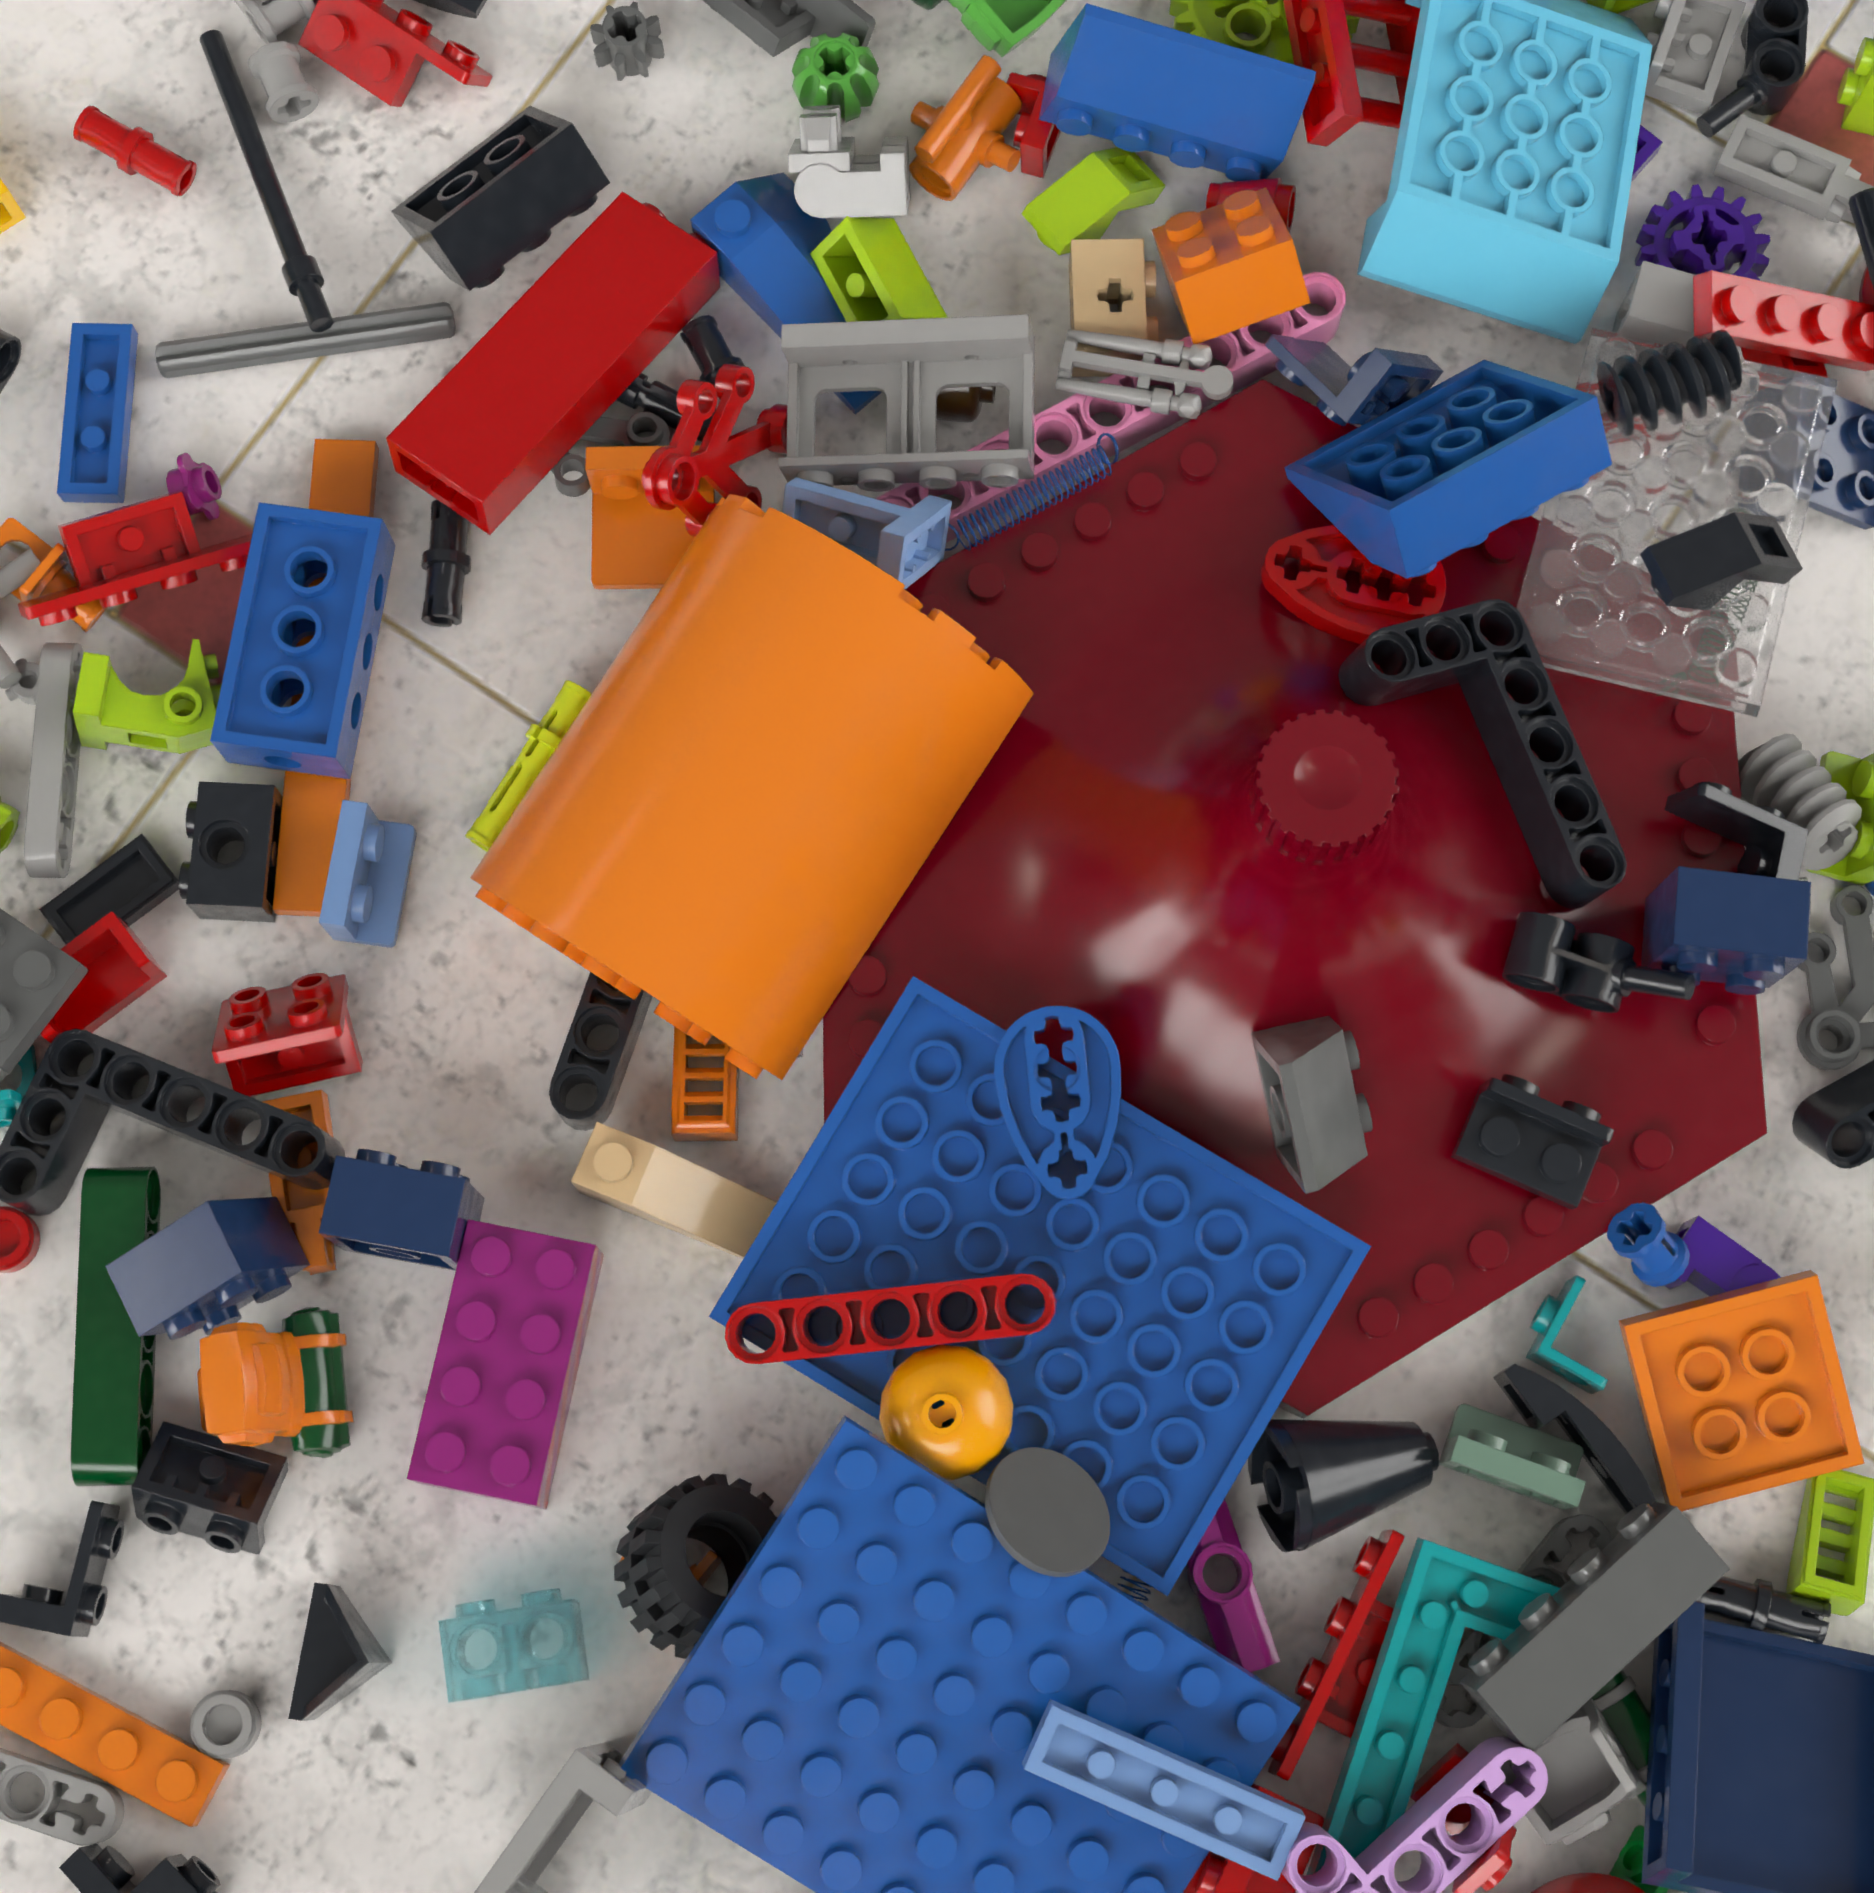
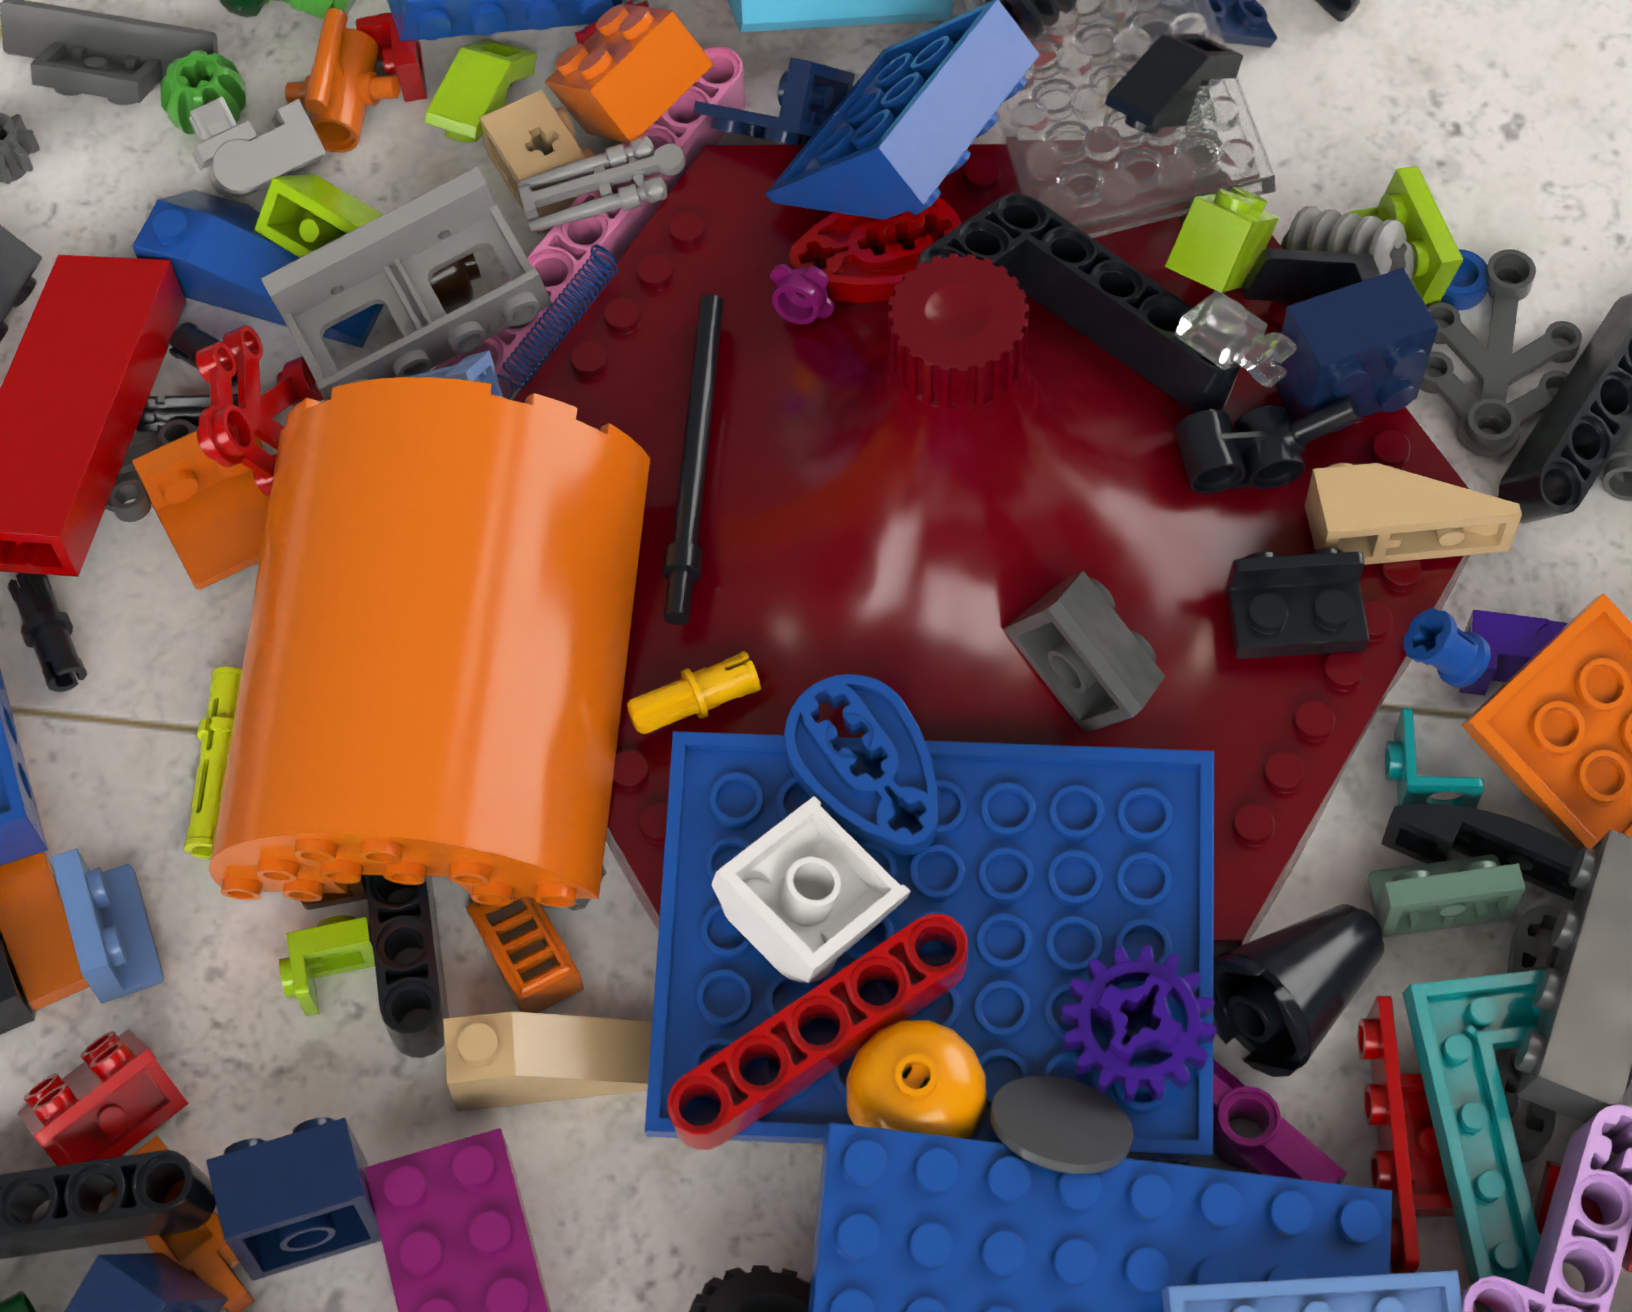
camera: 25 degrees left, 15 degrees down
(546, 995) = (331, 948): none -> lime bracket
(944, 1193) = (805, 893): none -> white slope
(953, 943) = (694, 693): none -> yellow axle
(1014, 804) = (683, 557): none -> black bar
(1124, 1482) = (1162, 1037): none -> dark purple gear
(1257, 595) = (801, 294): none -> magenta plate
(1620, 853) = (1232, 334): none -> clear plate
(1670, 752) = (1222, 238): none -> lime brick
(1671, 1100) = (1404, 515): none -> tan slope

